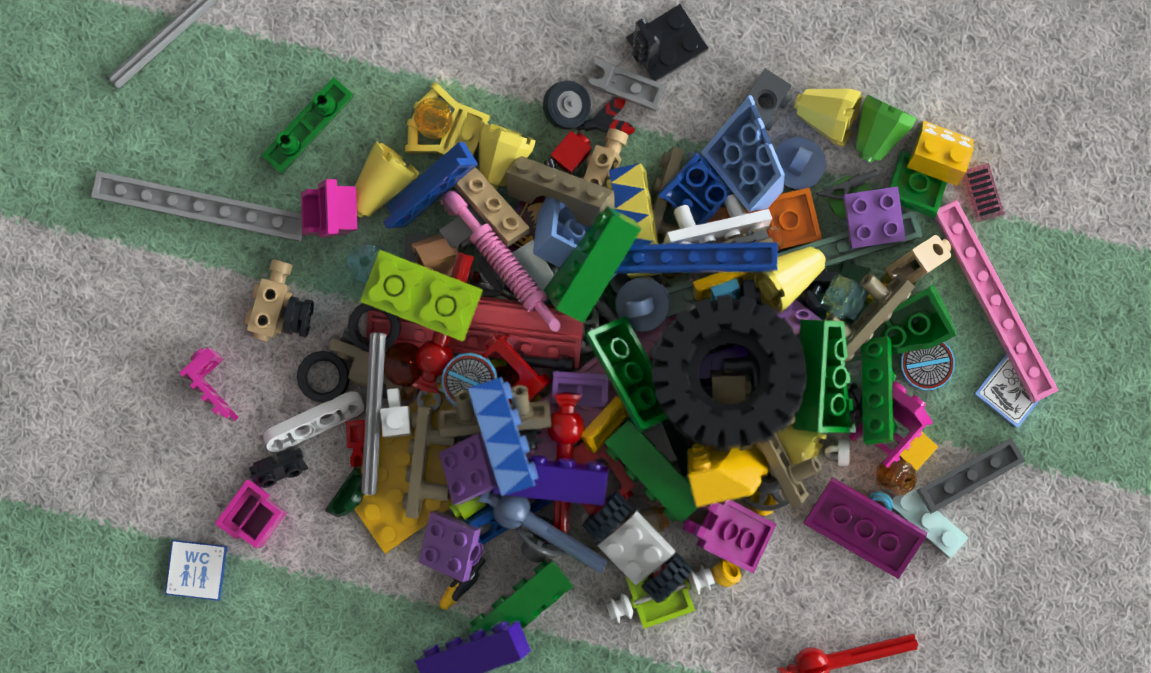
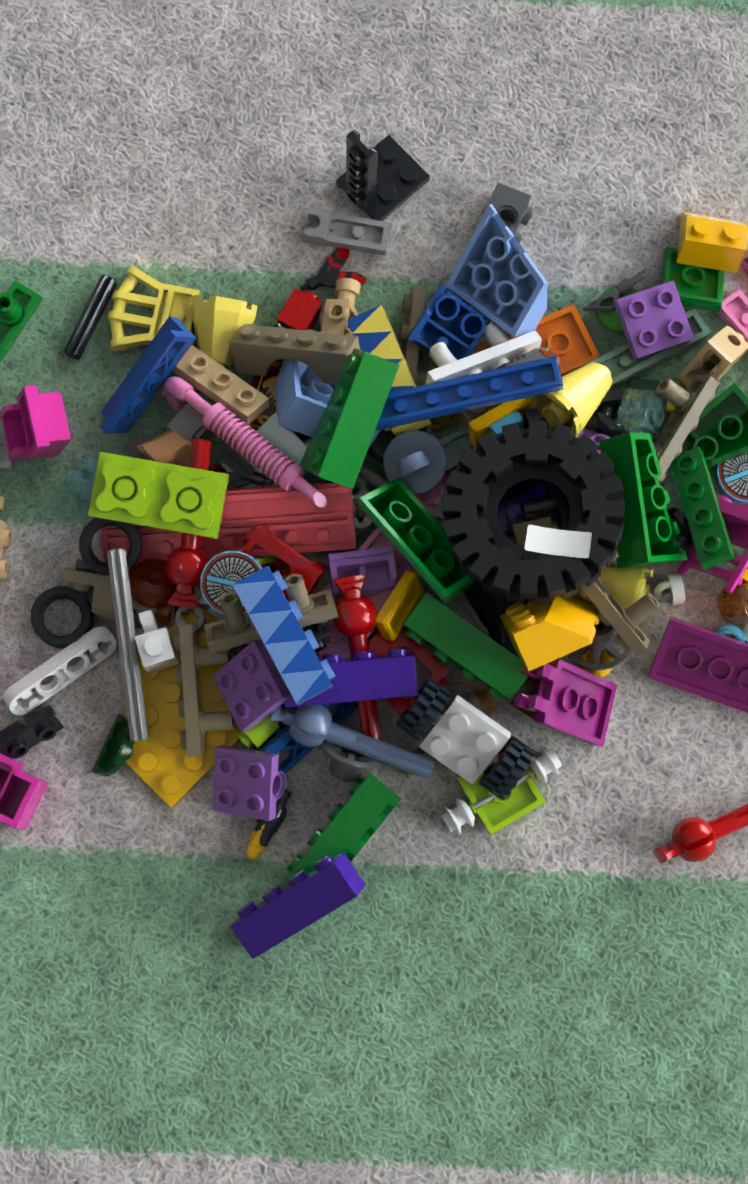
camera: 20 degrees left, 5 degrees down
(298, 316) = (20, 553): black wheel -> none
(355, 439) = (112, 683): red plate -> none
(381, 179) = (89, 382): light yellow cone -> none
(394, 117) = (90, 317): none -> black axle
(433, 118) = (137, 303): clear yellow wheel -> none
(563, 364) = (337, 545): black bar -> none
(566, 104) = (284, 263): black wheel -> none
(726, 573) = (572, 752): yellow tile -> none
(742, 405) = (558, 542): none -> white sticker
(801, 162) = (564, 279): sand blue tile -> none
(830, 112) = (578, 217): light yellow cone -> none
(880, 128) = (639, 223): bright green cone -> none

